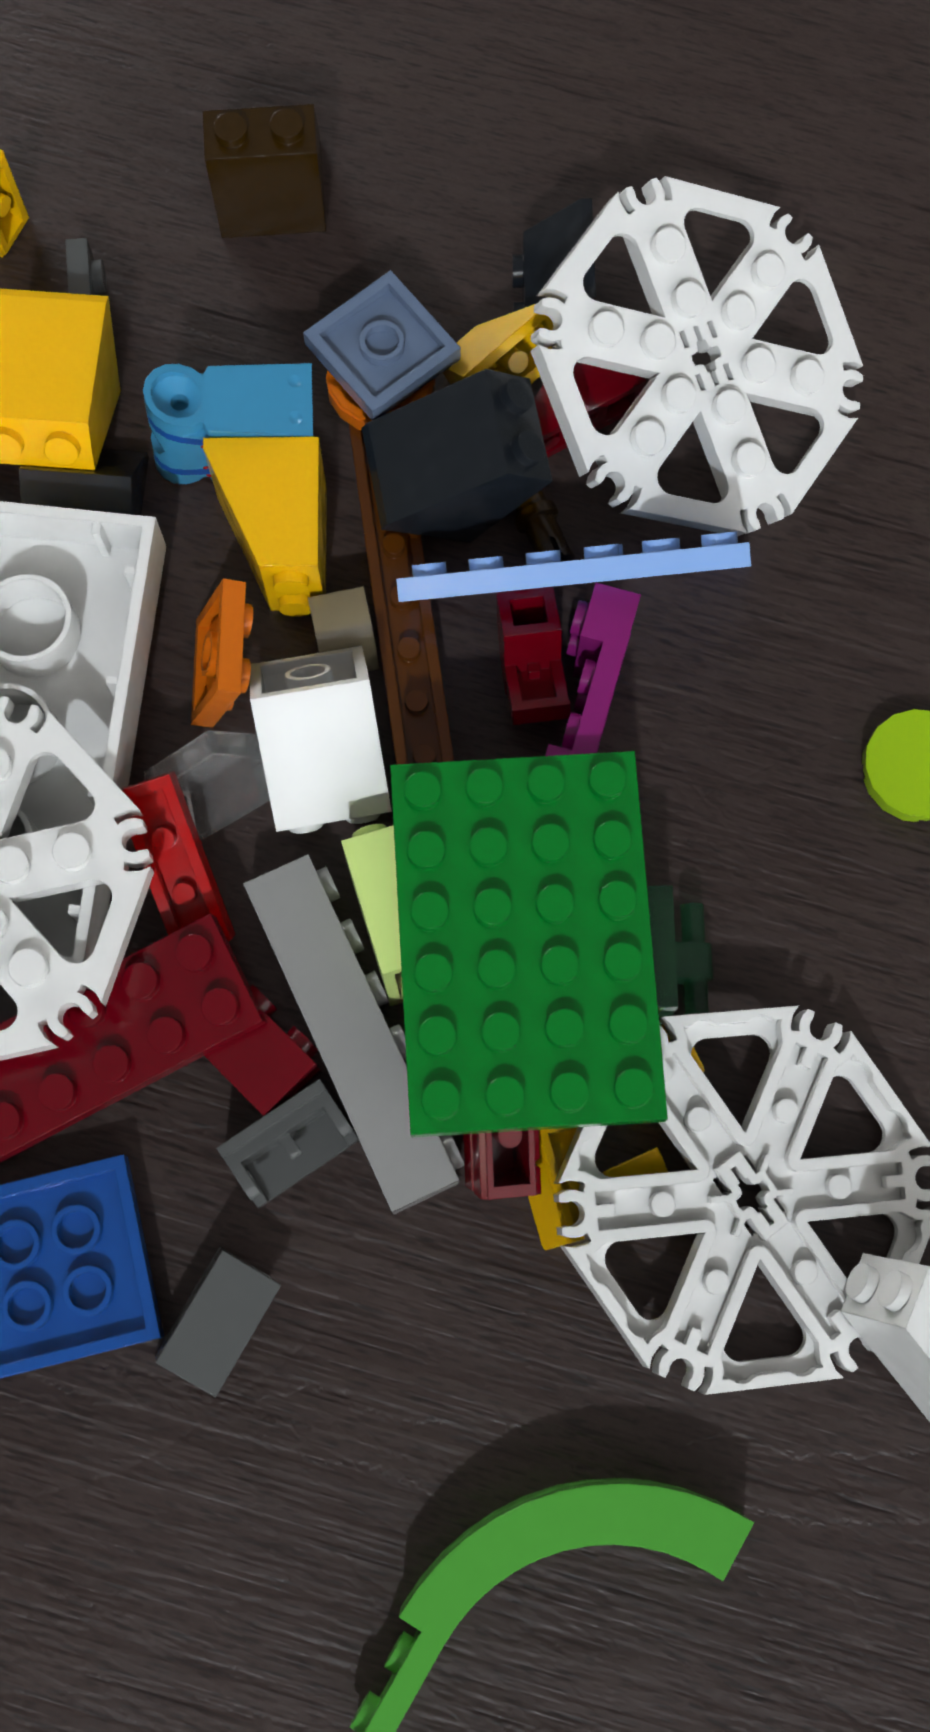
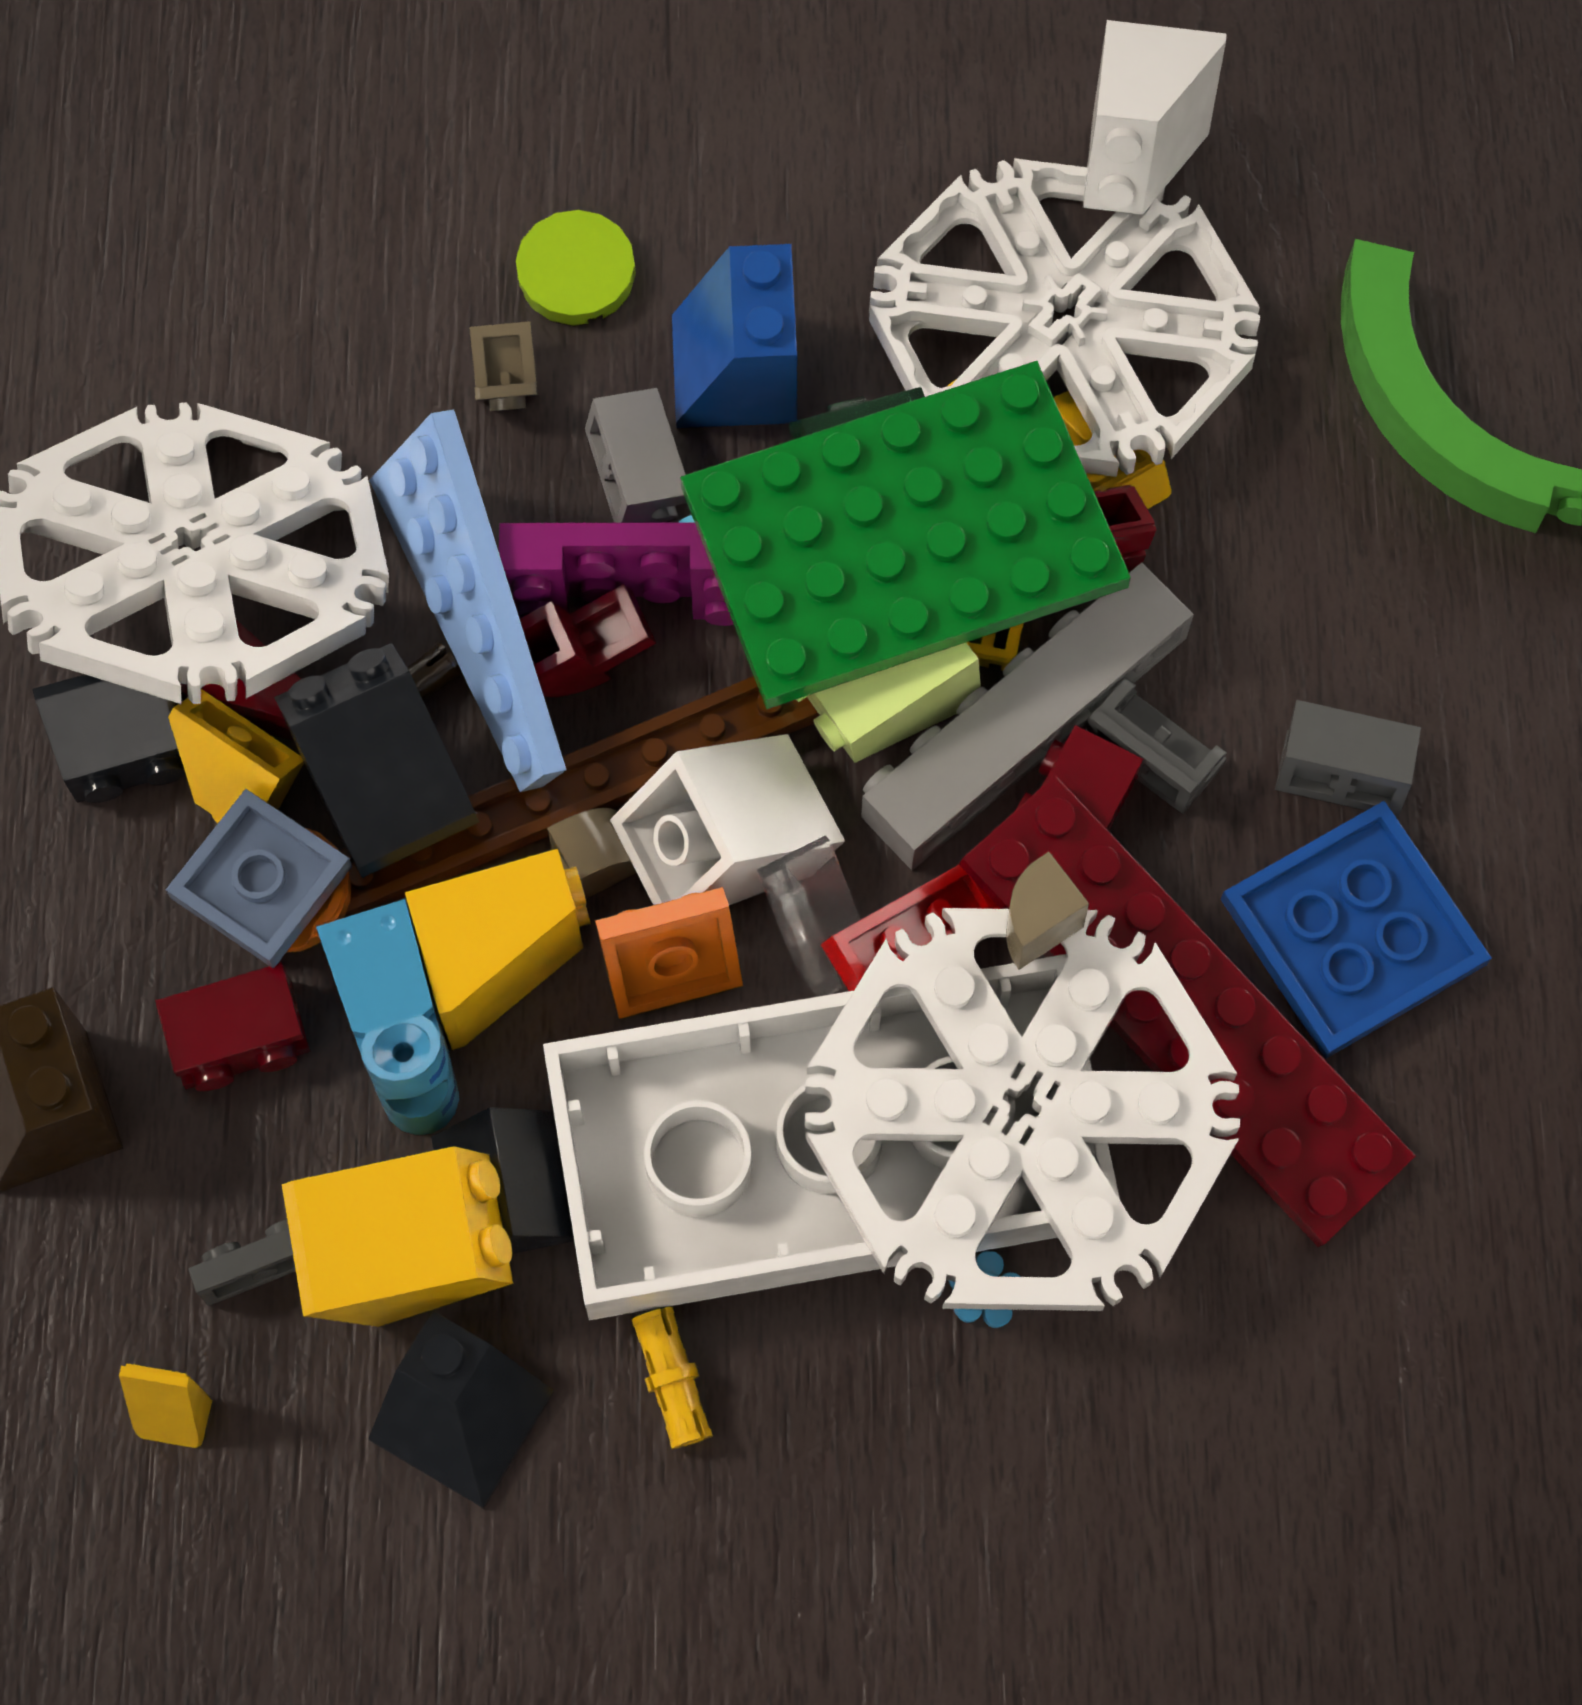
camera: 105 degrees left, 5 degrees down
(101, 939) = (1043, 911): none -> dark tan brick
(278, 309) = (233, 1028): none -> dark red brick
(705, 761) = (636, 456): none -> light grey hinge
(789, 882) = (738, 342): none -> blue slope
(827, 672) = (504, 364): none -> dark tan bracket

